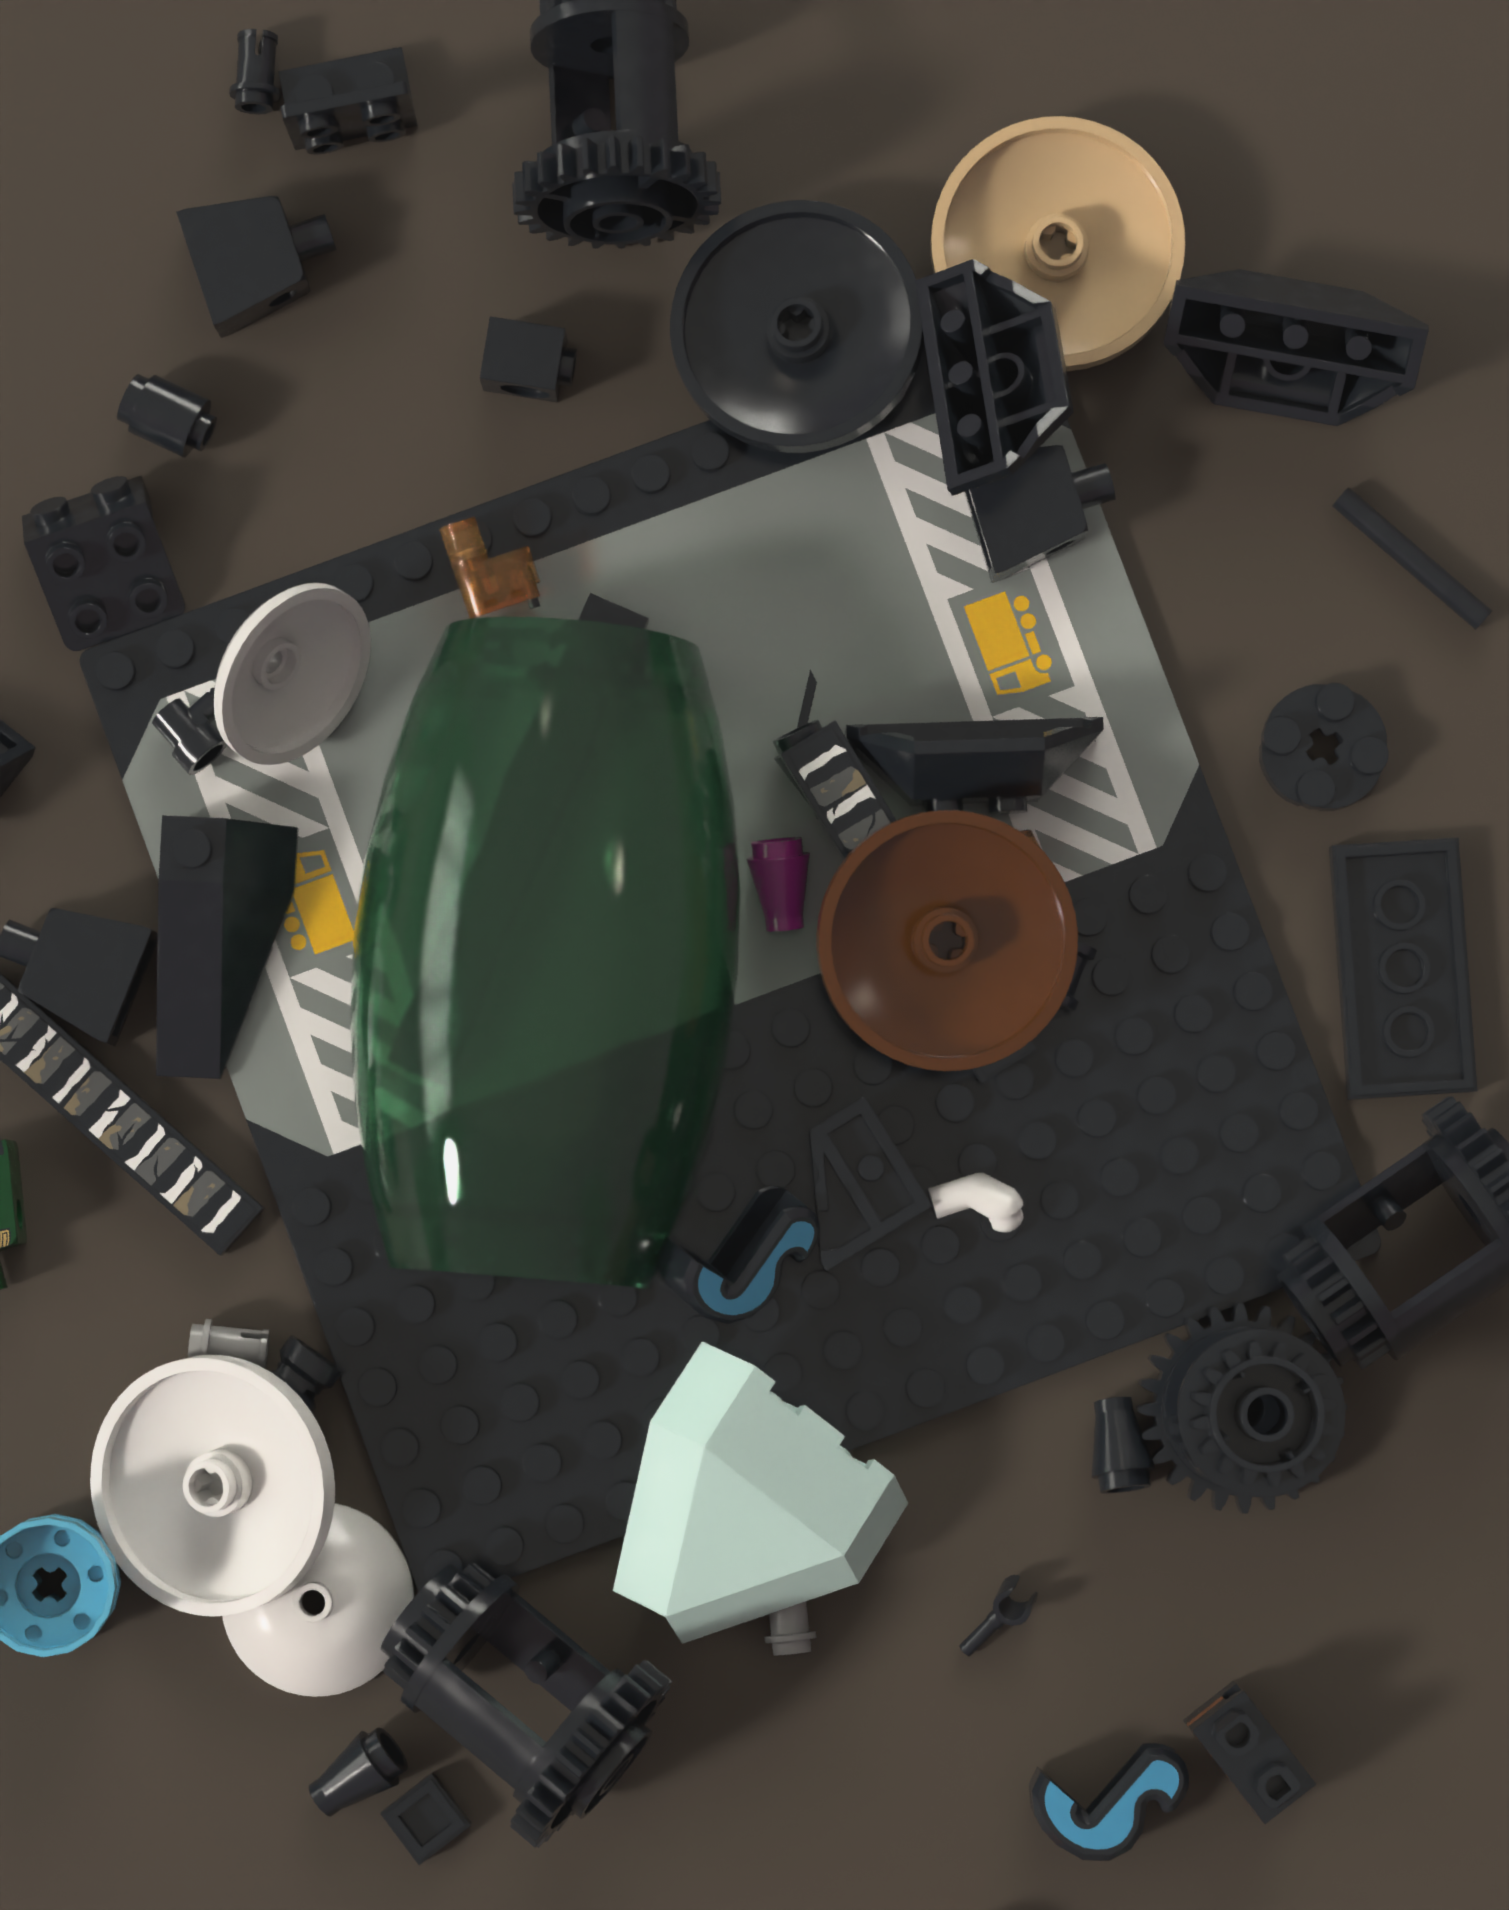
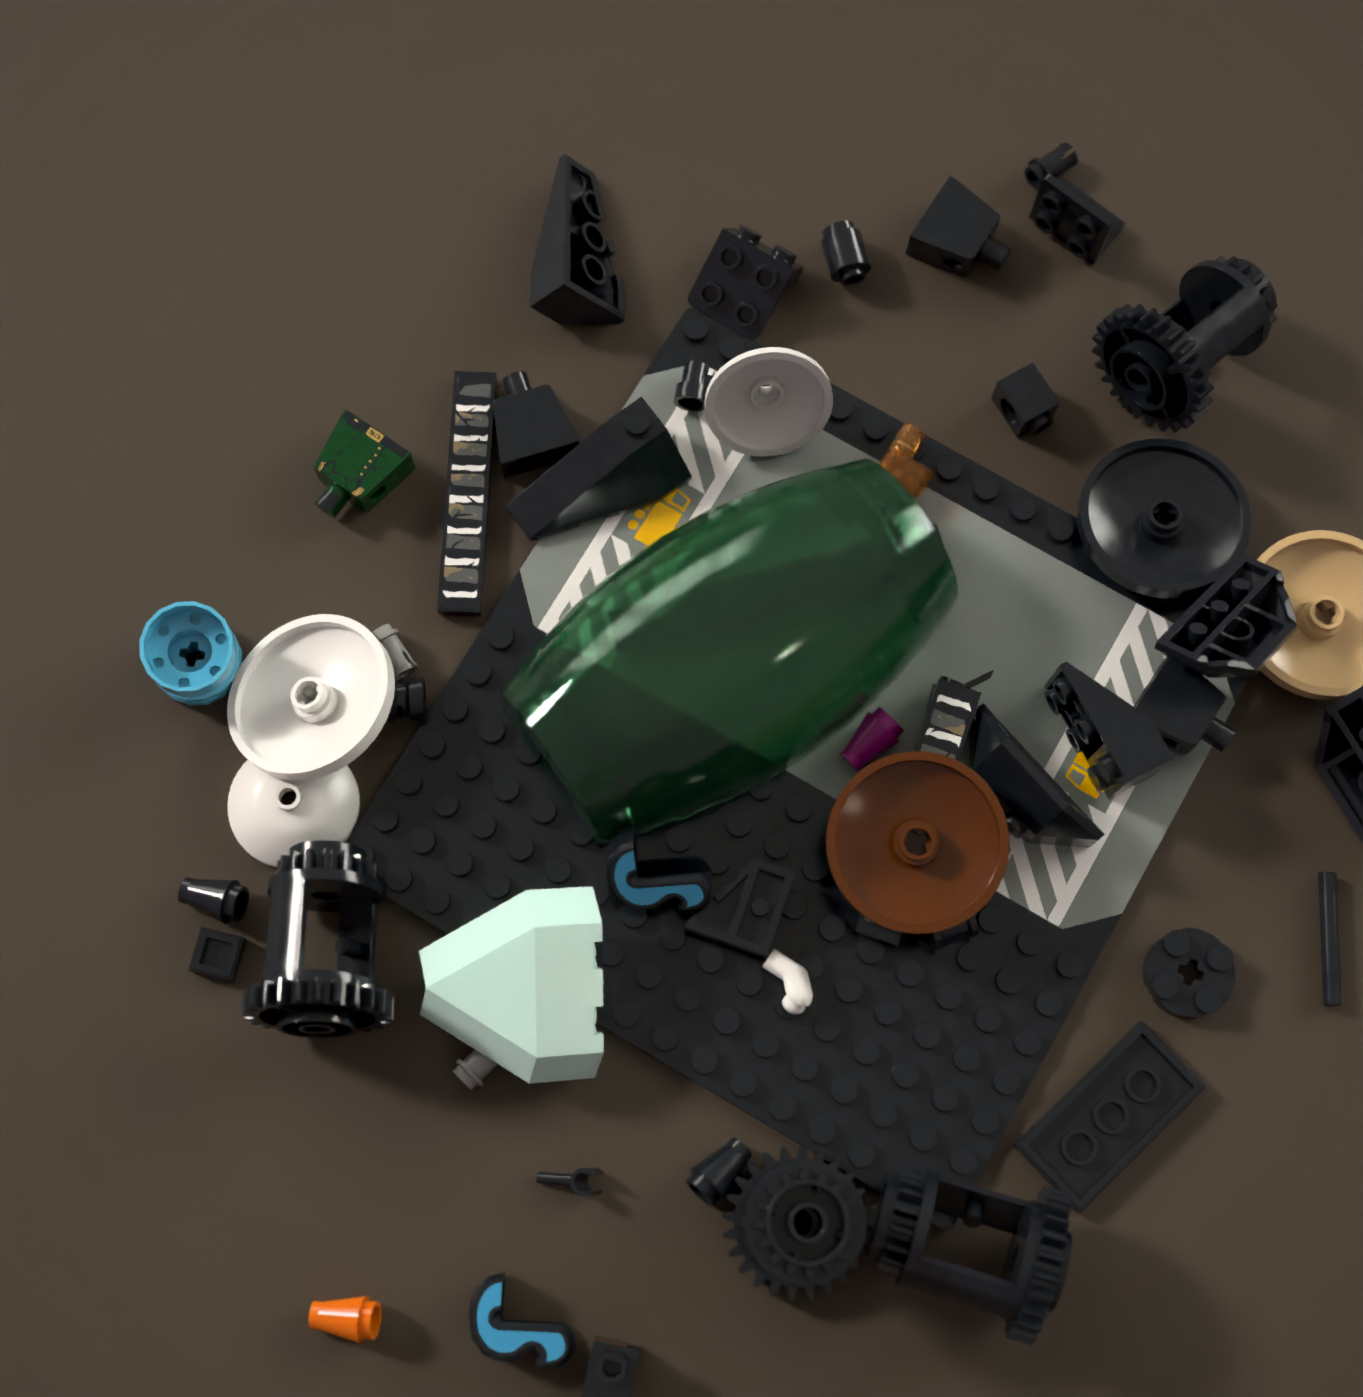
camera: 50 degrees right, 10 degrees down
(1007, 612) = (1111, 733): none -> black slope

